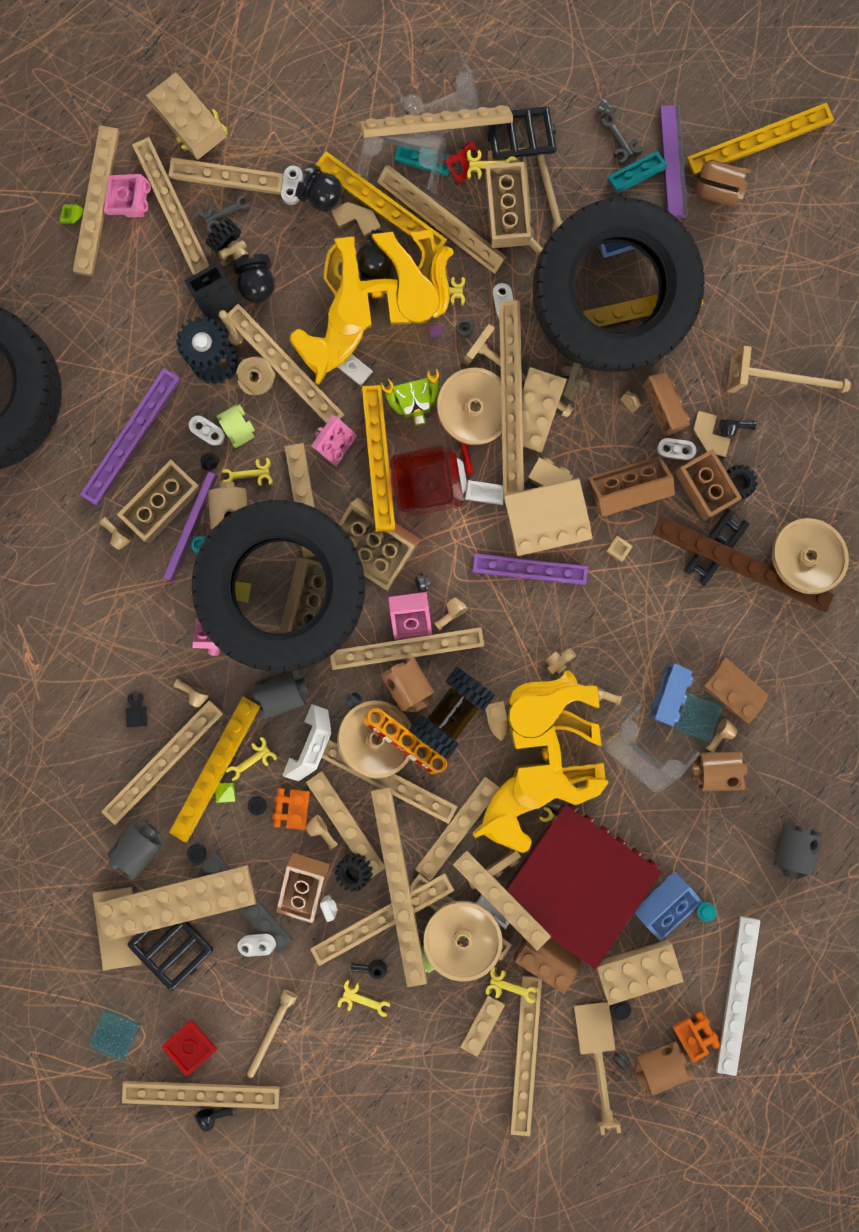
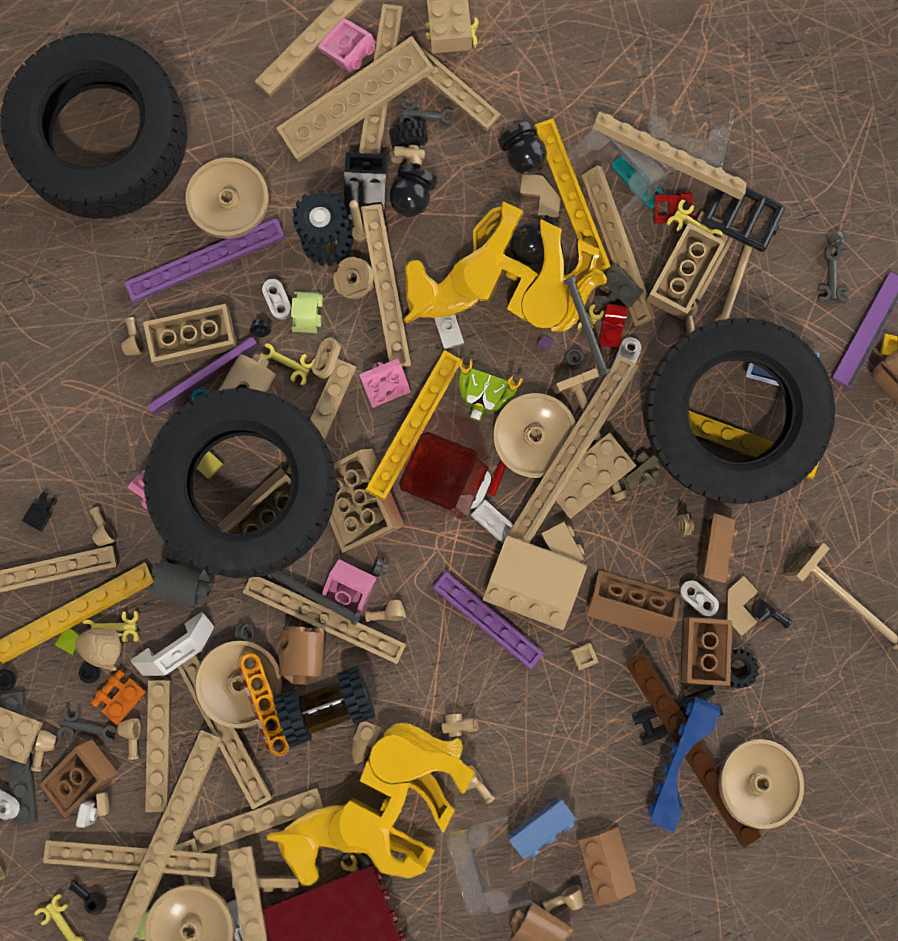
camera: 35 degrees right, 5 degrees down
(70, 213) = (287, 30): lime slope -> none
(115, 376) = (227, 198): none -> tan dish
(162, 233) = (355, 99): none -> tan plate
(252, 781) = (99, 647): none -> tan helmet
(260, 878) = (45, 742): none -> tan bar
(269, 853) = (70, 725): none -> dark grey bar
(275, 451) = (326, 357): none -> tan plate
(290, 184) = (501, 126): white plate -> none
(336, 896) = (102, 803): none -> tan tile
(345, 877) = (144, 794): black tyre -> none
(391, 636) = (354, 618): none -> dark grey bar
(460, 295) = (586, 325): none -> dark grey bar
(465, 249) = (621, 287): none -> dark grey plate
(477, 284) = (612, 326): none -> red plate
(637, 172) = (828, 318): teal plate -> none
(698, 717) = (554, 867): clear light blue tile -> none
(738, 540) = (700, 723): none -> blue arch

